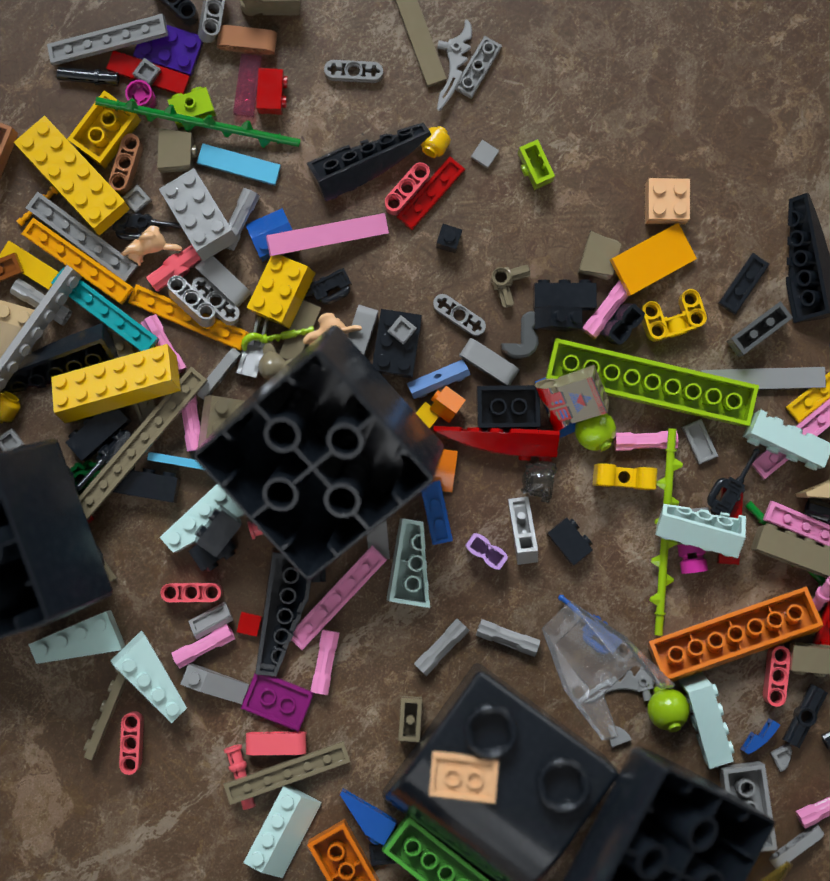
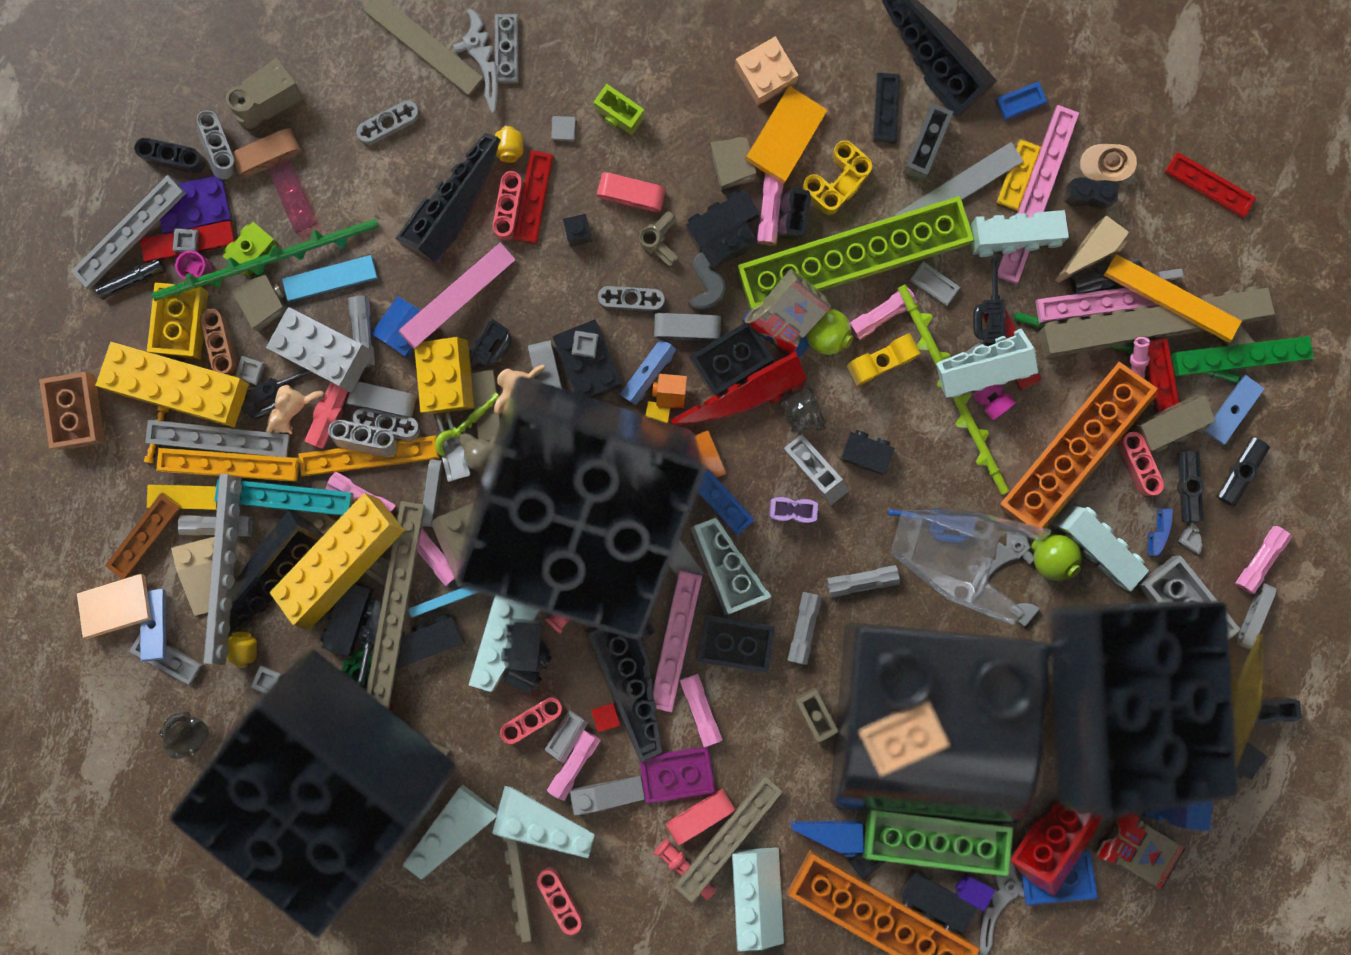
camera: 30 degrees left, 0 degrees up
(271, 91) = (319, 189): red brick -> none
(381, 627) = (736, 643): none -> black brick
(507, 233) = (631, 192): none -> coral beam

